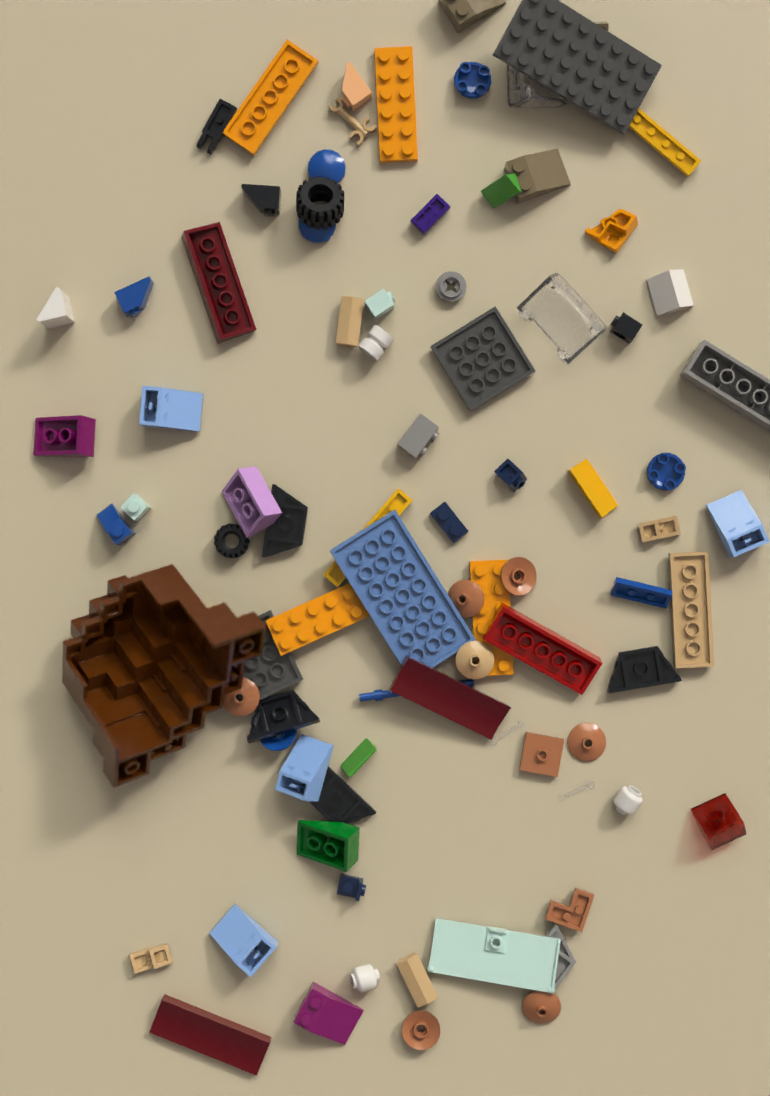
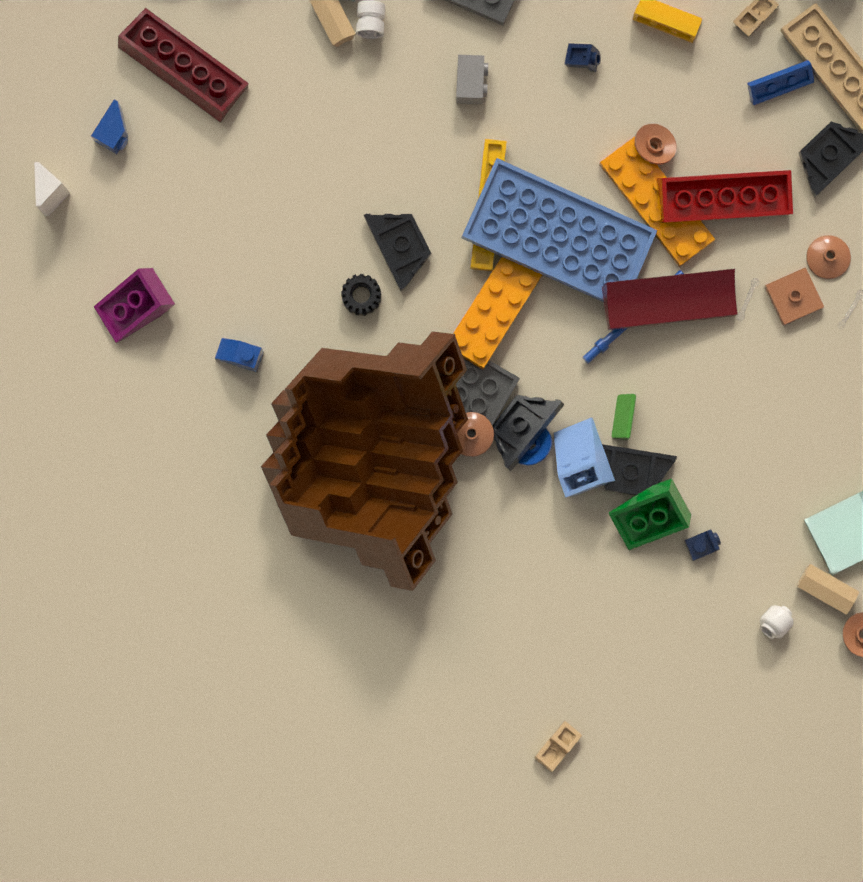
camera: 30 degrees left, 5 degrees down
(135, 507) = (248, 323): light aqua brick -> none
(170, 409) = (218, 209): light blue slope -> none
(210, 1034) = (667, 781): dark red arch -> none
(243, 940) = (635, 664): light blue slope -> none
(251, 501) = (354, 242): lavender slope -> none
(327, 1014) = (766, 682): magenta slope -> none
(449, 522) = (554, 140): dark blue plate -> none
(467, 653) = (666, 259): tan dish -> none
(473, 595) = (629, 192): nougat dish -> none

